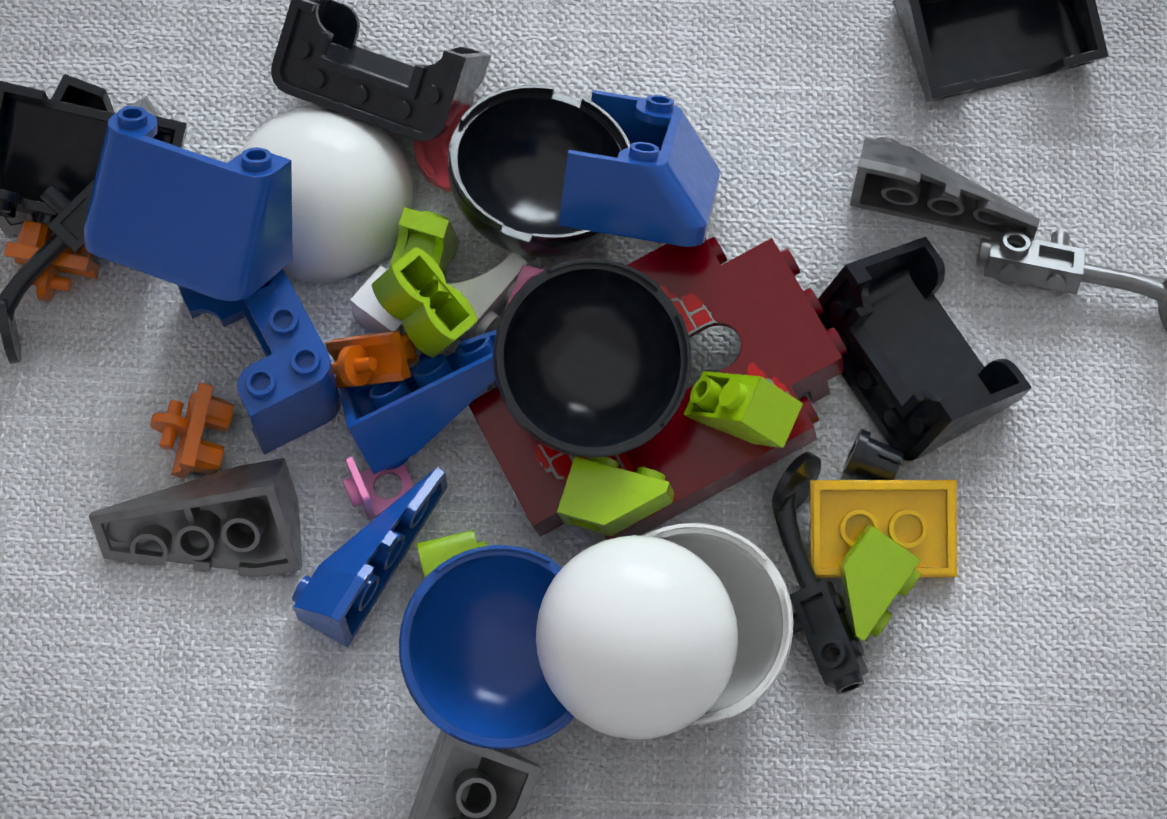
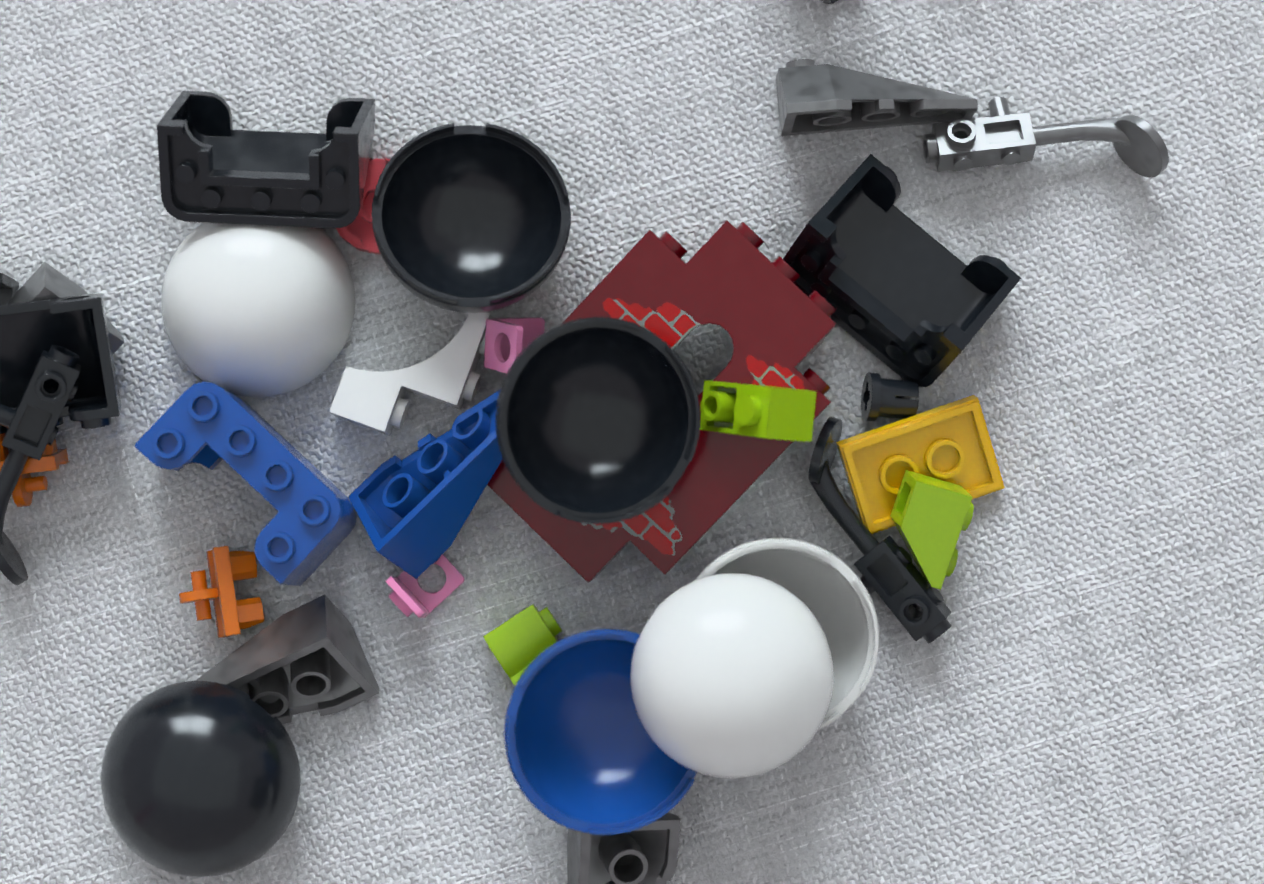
camera: 15 degrees left, 15 degrees up
(106, 585) = (199, 779): none -> black piece
(188, 214) = (142, 415): blue windscreen -> none
(356, 574) = (432, 691): blue wedge -> none
(371, 358) = (372, 466): orange hips -> none
(427, 232) = (382, 332): lime brick -> none
(427, 306) = (415, 406): lime brick -> none
(611, 498) = (657, 538): lime slope -> none
(655, 188) = (595, 221): blue windscreen -> none

